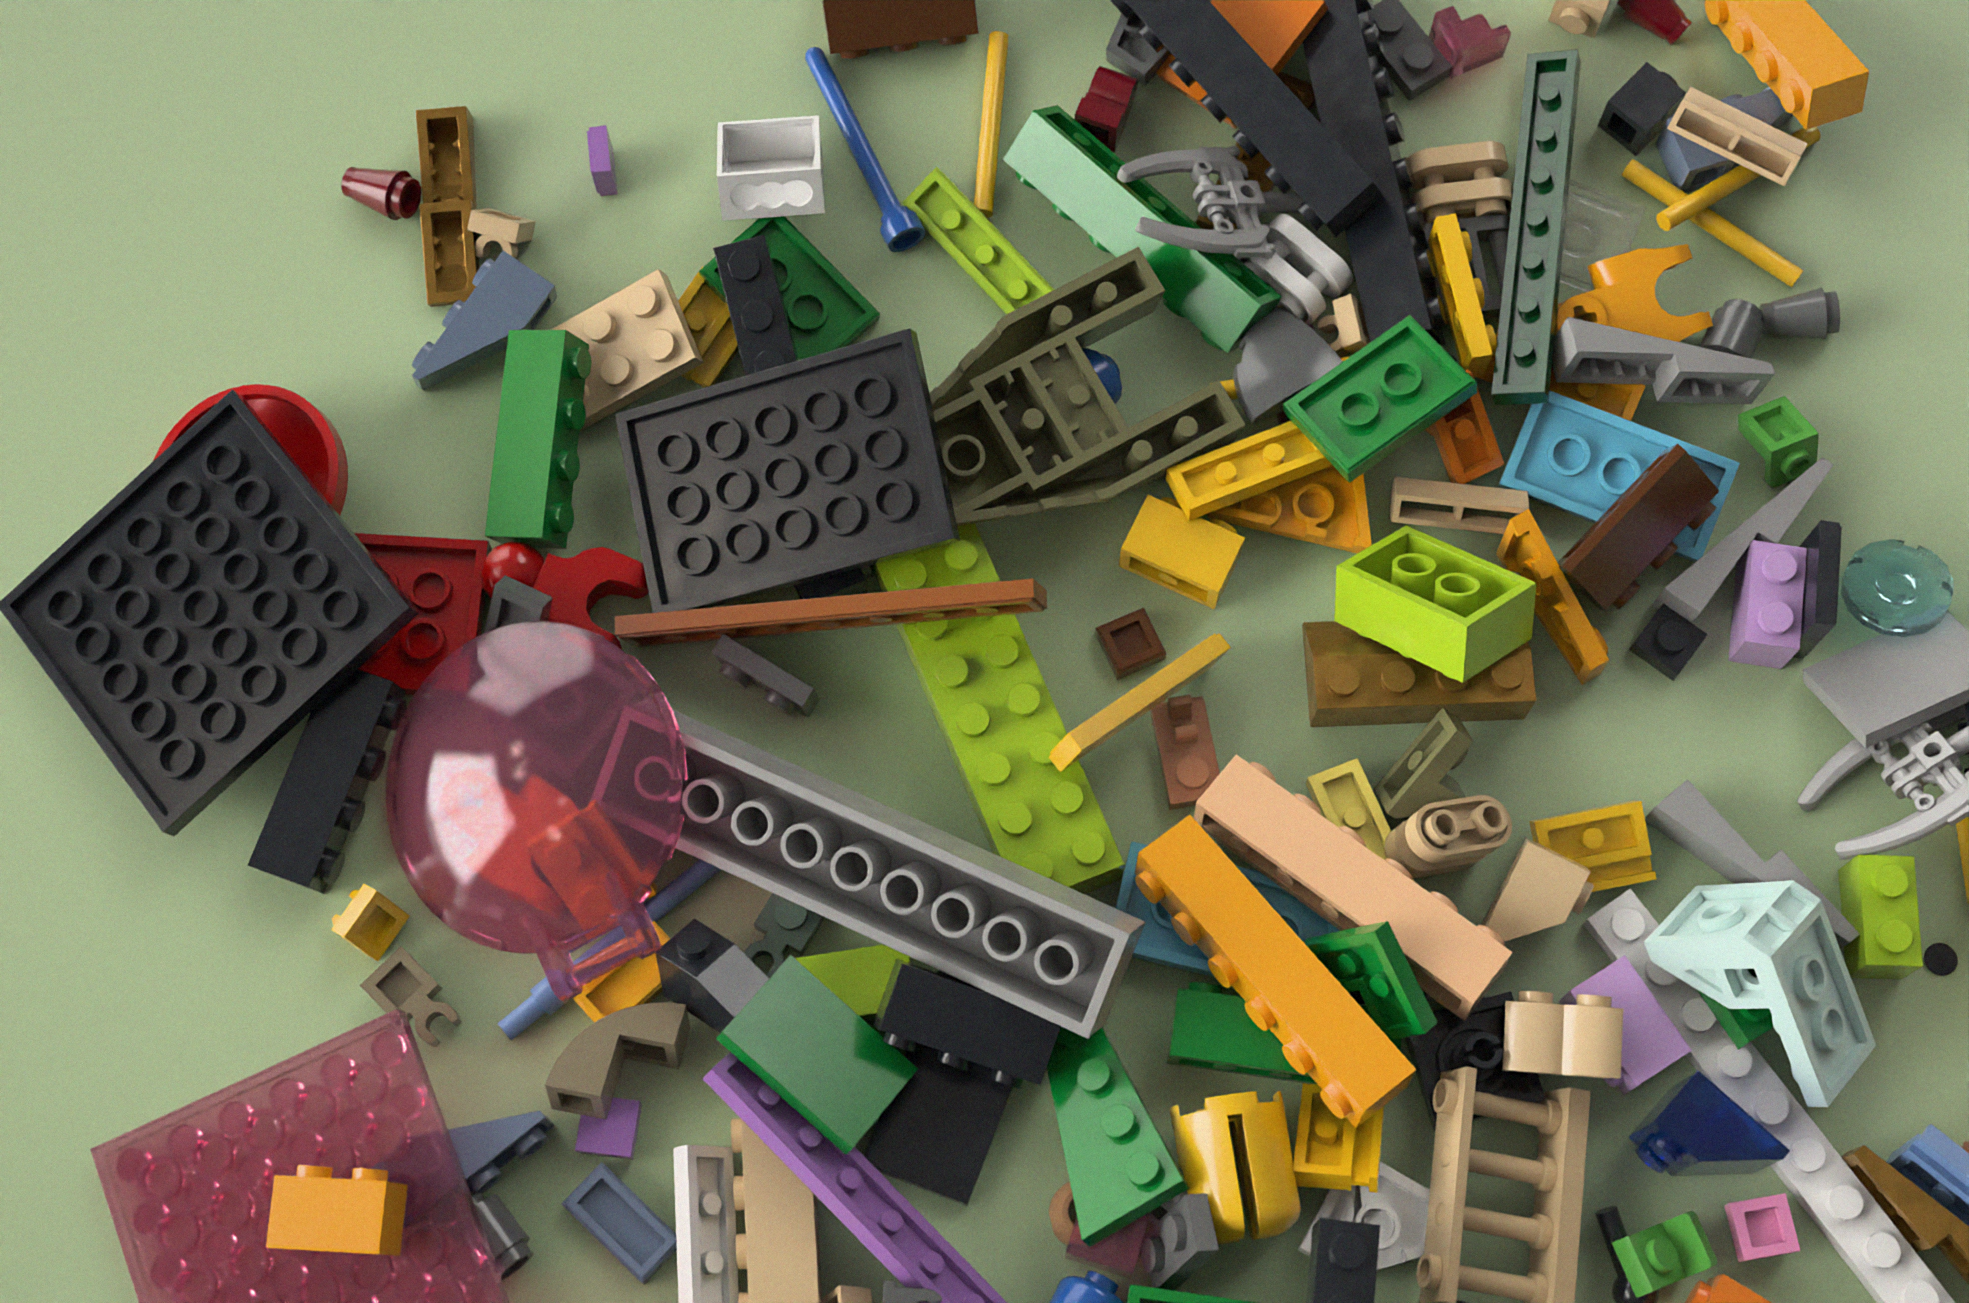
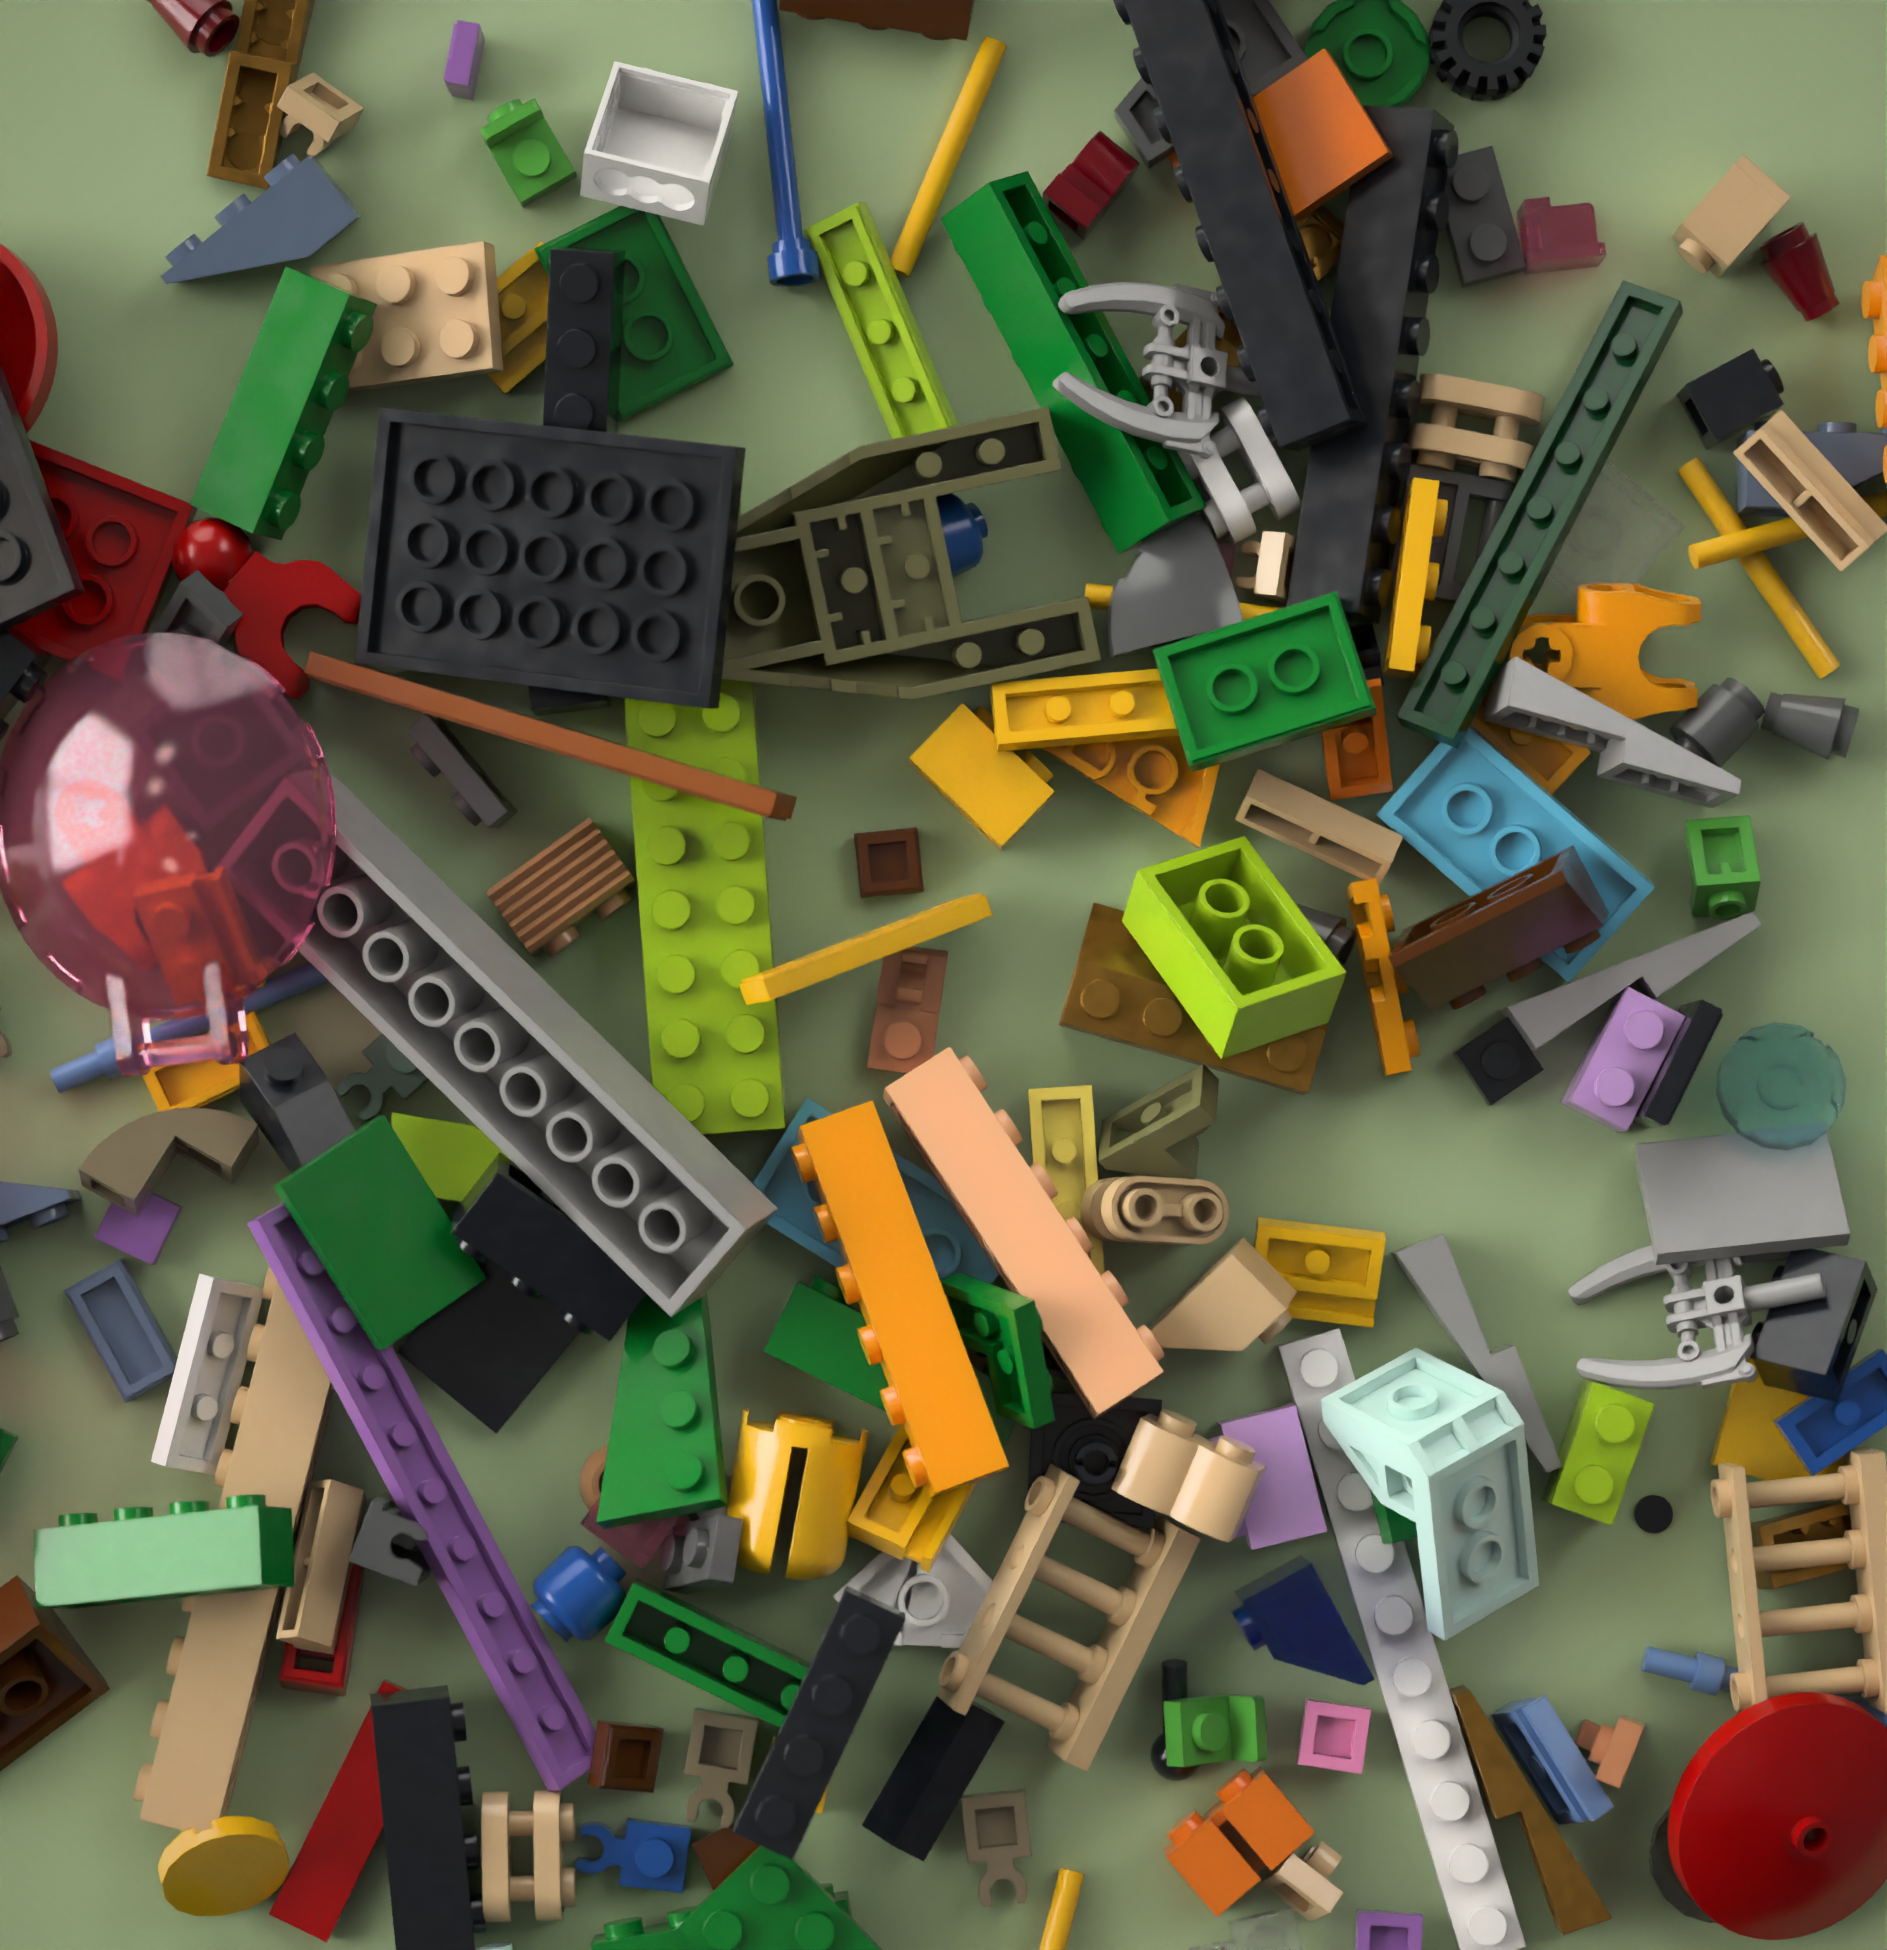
camera: 10 degrees right, 15 degrees up
(669, 211) = (526, 150): none -> bright green bracket
(878, 740) = (563, 889): none -> medium nougat brick

